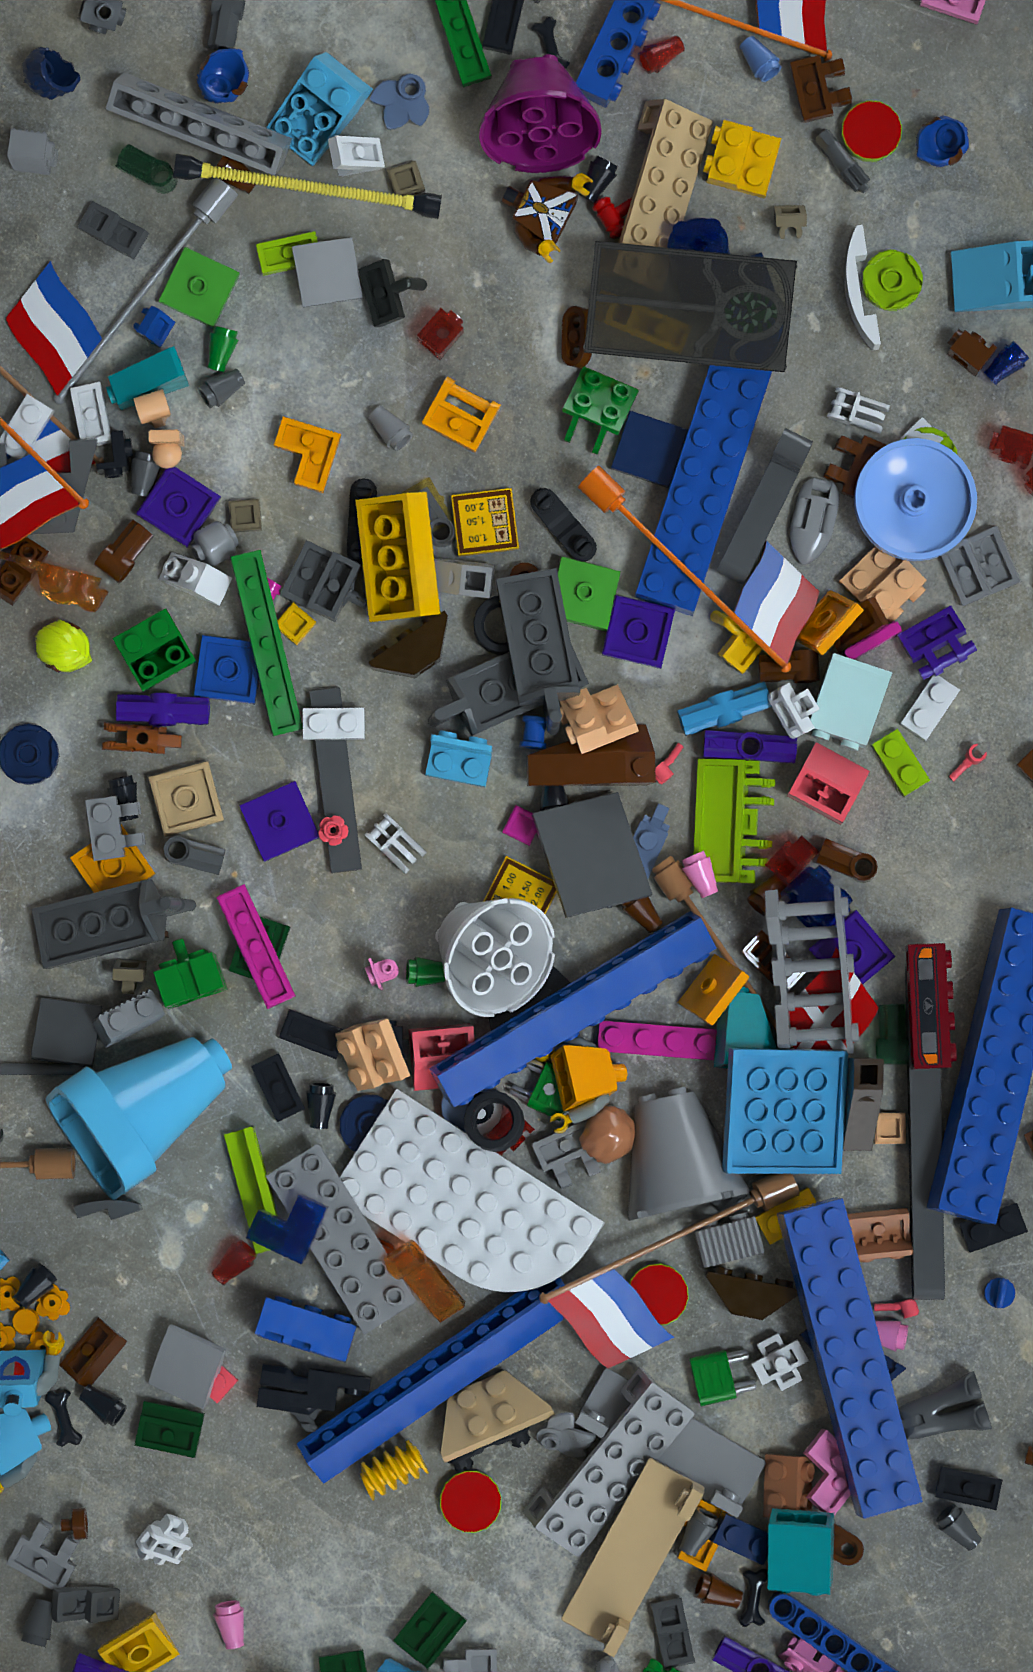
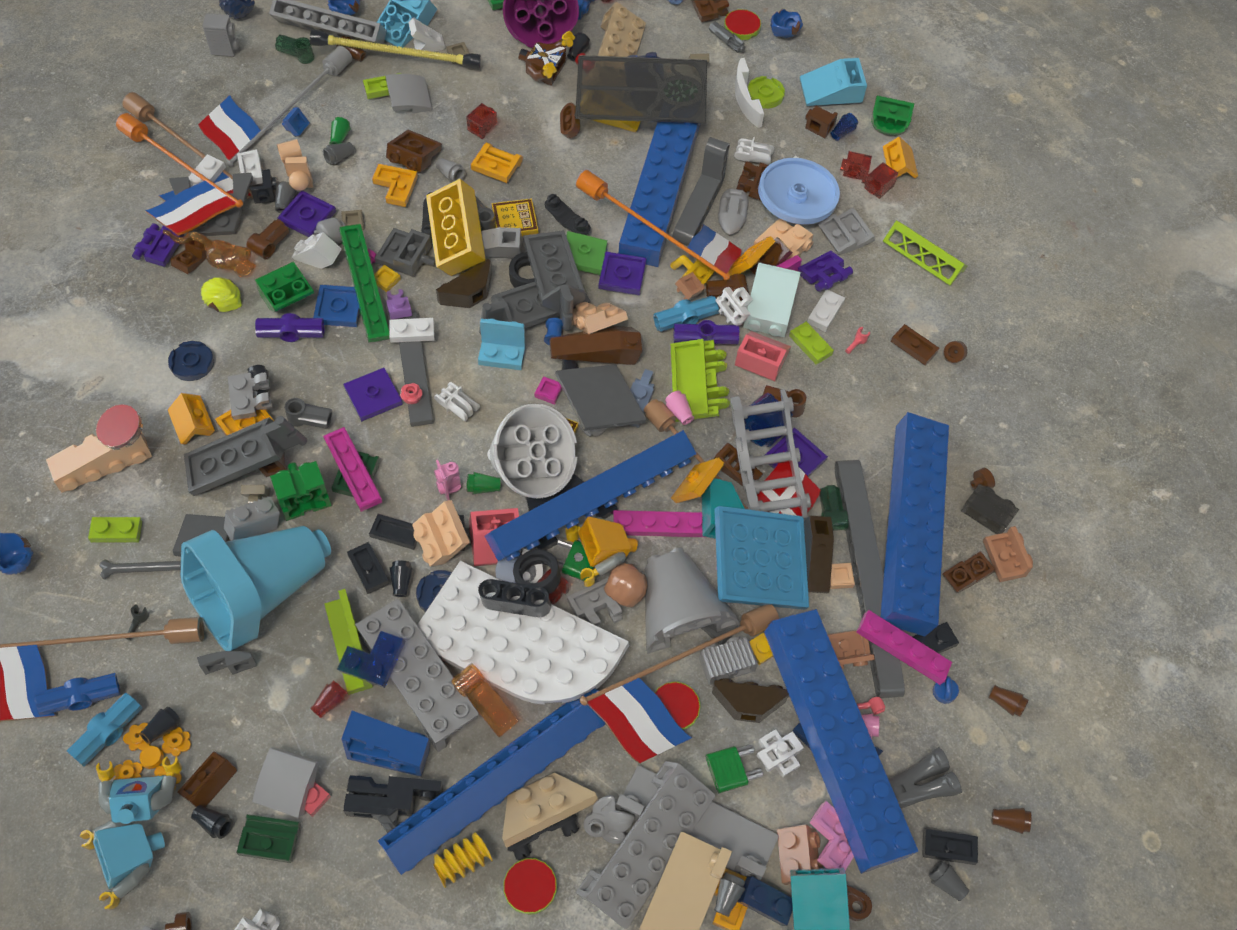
camera: 10 degrees left, 25 degrees down
(35, 850) = (190, 417): none -> light orange panel
(59, 1402) = (174, 823): black piece -> none
(113, 230) = (268, 78): dark grey slope -> none
(147, 376) = (297, 129): teal slope -> none
(156, 743) = (273, 345): dark orange hinge -> none
(186, 799) = (305, 380): tan plate -> none
(199, 287) = (326, 104): bright green plate -> none
(314, 680) = (398, 305): none -> medium lavender plate
(335, 390) = (412, 150): none -> reddish brown plate
(383, 291) = (444, 101): pearl dark grey plate -> none
(398, 104) = (455, 16): sand blue plate -> none
(450, 1153) = (506, 590): none -> black beam
(600, 402) = (596, 153): green plate -> none
(643, 913) = (638, 436): reddish brown cone -> none
(649, 449) = (621, 176): dark blue tile -> none
(662, 771) = (647, 353): coral hand -> none
(733, 671) = (689, 286): none -> nougat tile
(742, 159) = (665, 37): yellow plate -> none
(757, 896) = (724, 426): reddish brown cone -> none
(792, 859) = (746, 392): clear red brick -> none
(929, 1007) = (859, 480): brick -> none
(951, 1242) = (904, 647): none -> dark pink plate

